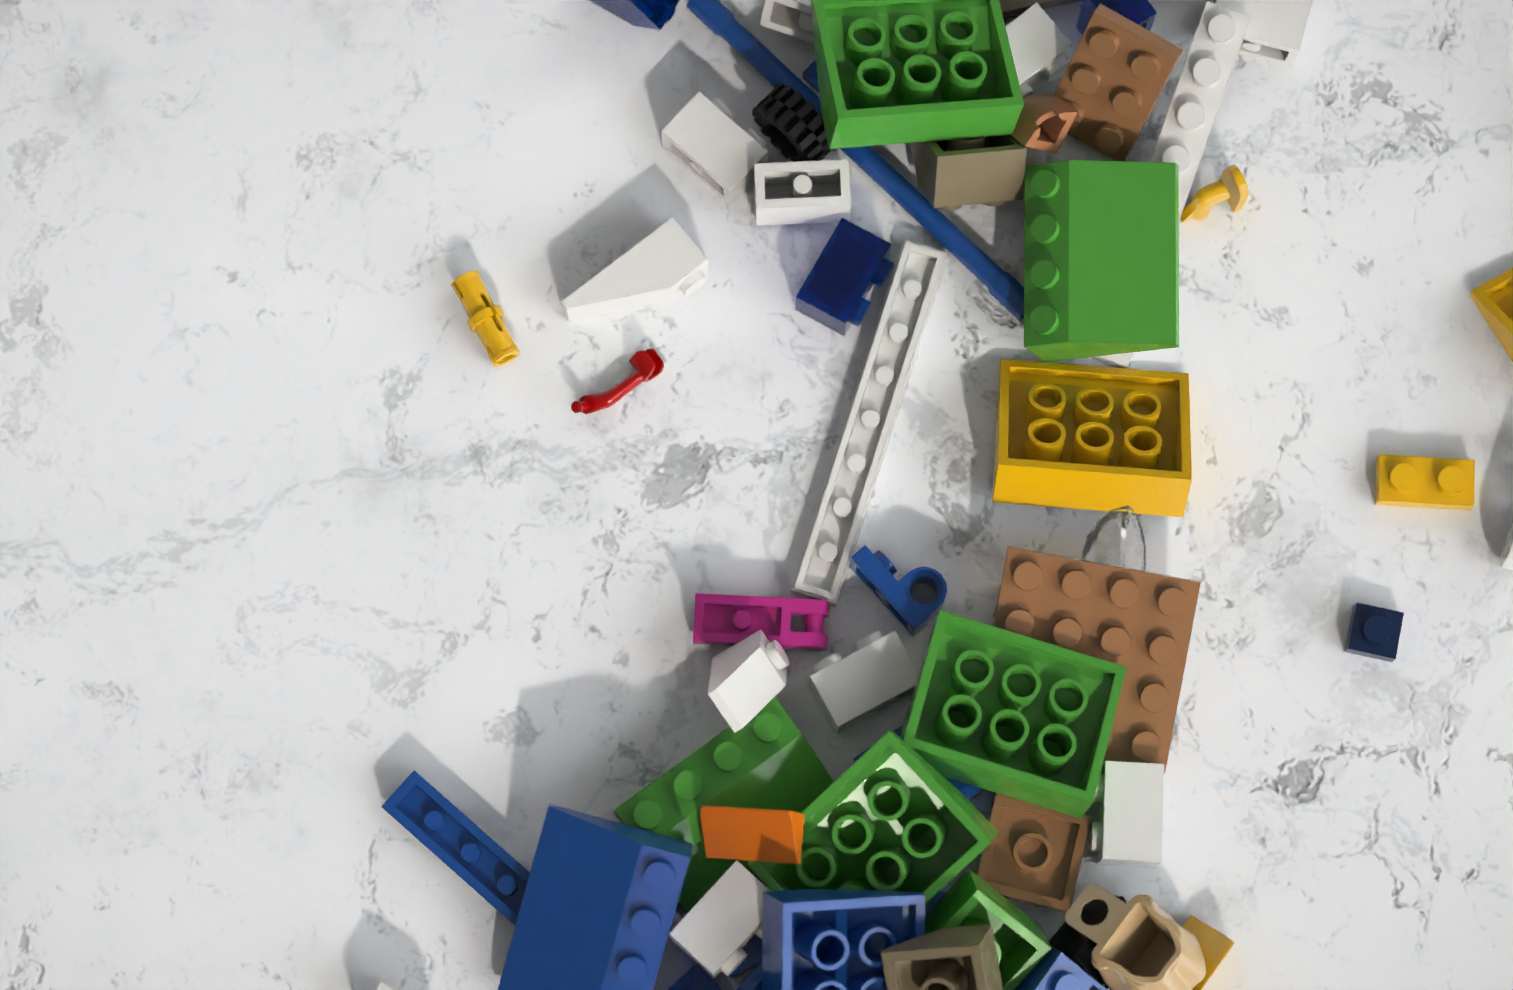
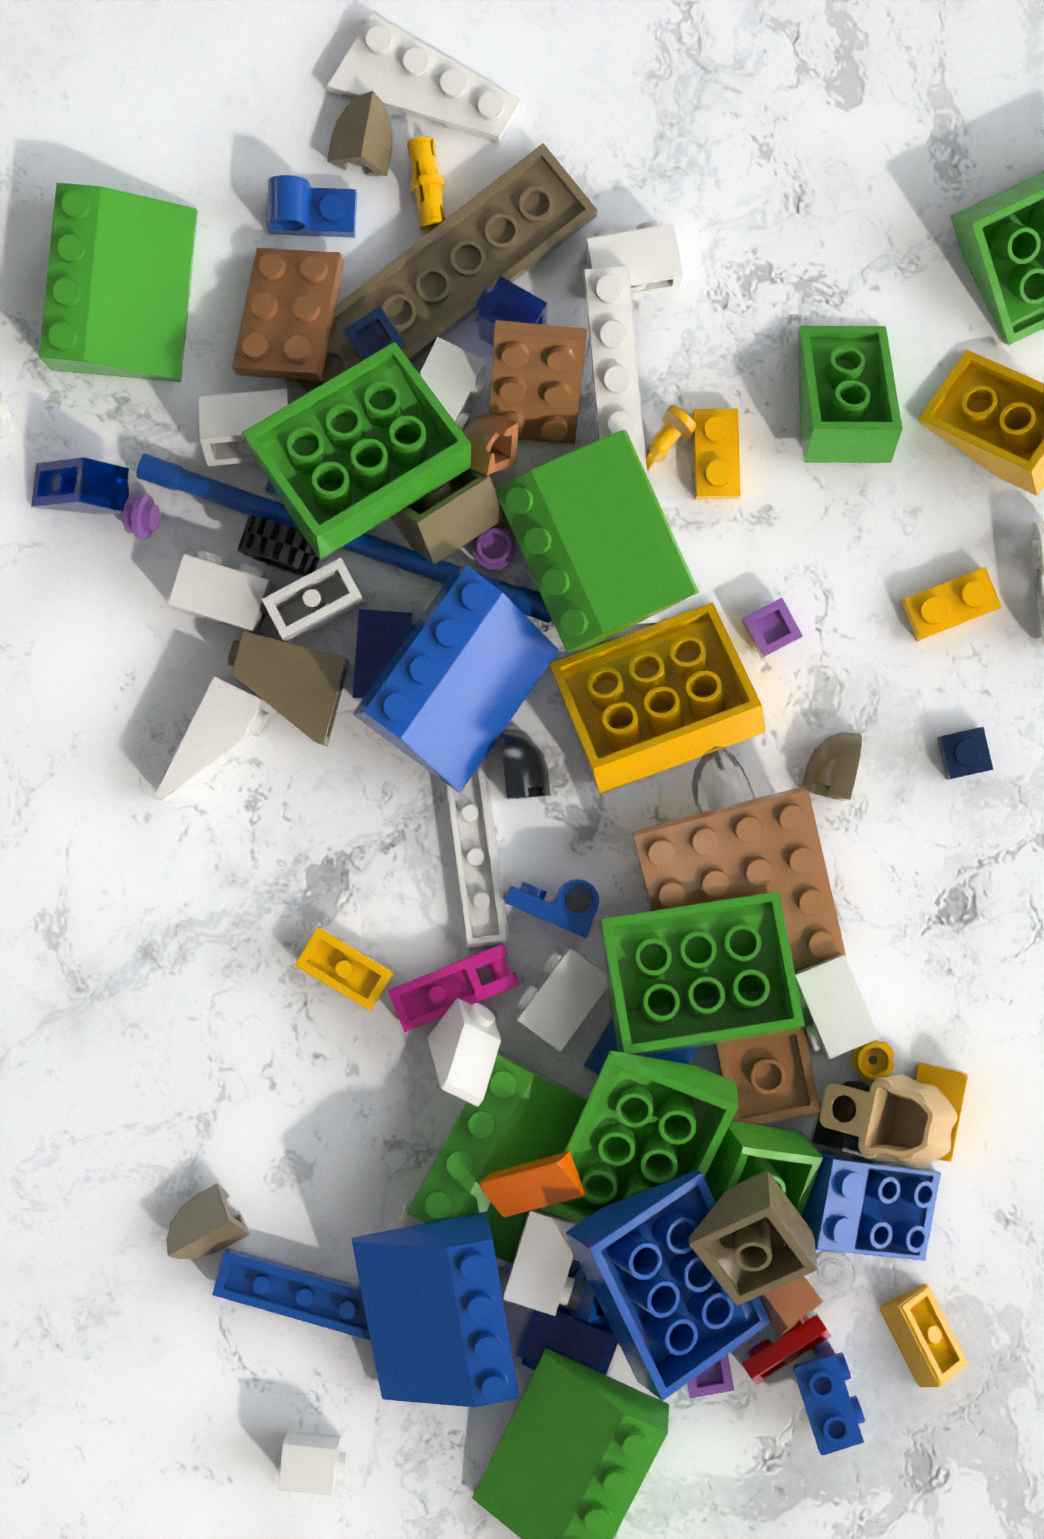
camera: 25 degrees left, 10 degrees up
(406, 739) = (204, 1226): none -> dark tan brick
(485, 318) = (97, 835): yellow pin -> none
(646, 366) = (254, 812): red piece -> none
(663, 554) = (344, 968): none -> yellow plate
(673, 42) = (141, 516): none -> medium lavender plate
(745, 259) = (293, 680): none -> dark tan slope
(907, 326) = (457, 678): none -> blue slope
(928, 445) = (523, 767): none -> black brick
(998, 225) = (494, 548): none -> medium lavender plate
(1149, 876) = (883, 1065): none -> yellow plate
(1234, 585) = (834, 766): none -> dark tan brick
(1235, 422) = (771, 627): none -> medium lavender plate
(1256, 236) = (716, 454): none -> yellow plate
(1409, 236) = (847, 395): none -> bright green slope

